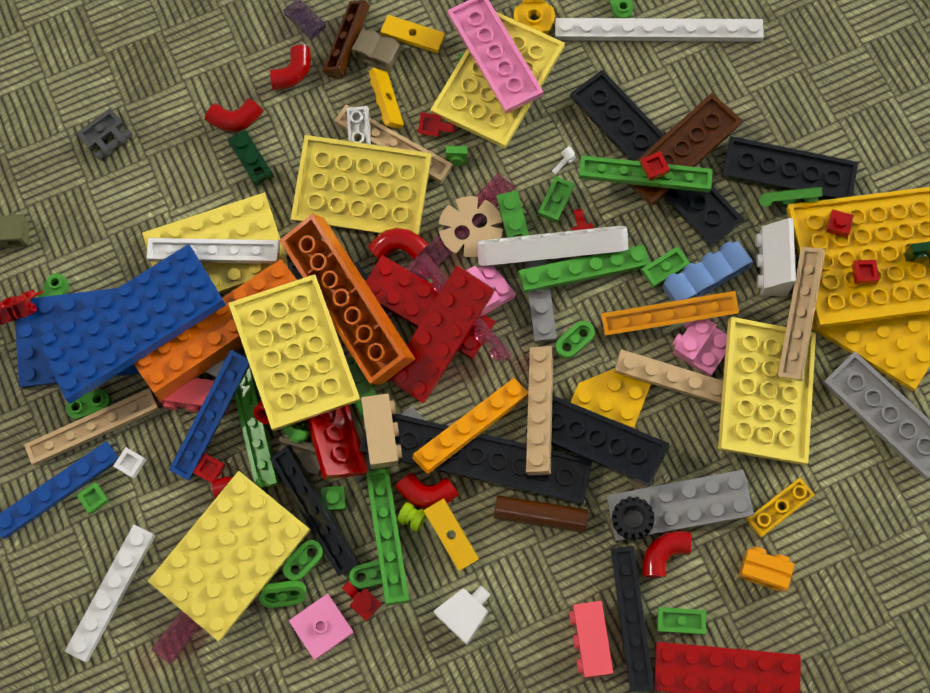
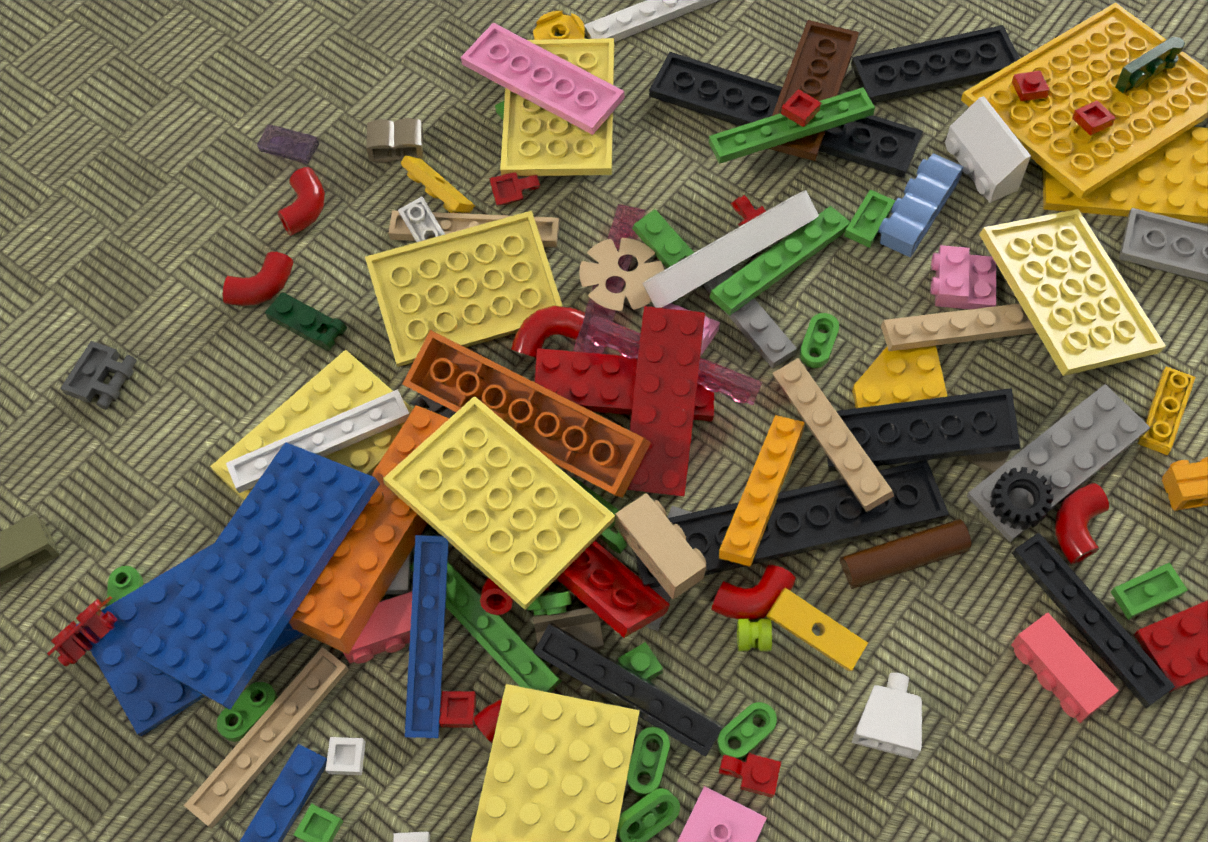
camera: 30 degrees left, 10 degrees down
(346, 38) = (352, 144): reddish brown brick -> none
(387, 537) = (742, 675): bright green plate -> none
(403, 30) = (430, 105): yellow tile -> none
(457, 155) = (559, 205): bright green plate -> none
(556, 199) = (702, 203): bright green plate -> none
(569, 157) = (686, 154): white hand -> none
(670, 313) = (911, 257): light orange plate -> none
(790, 196) = (958, 85): bright green plate -> none
(801, 313) = (1058, 190): tan plate -> none

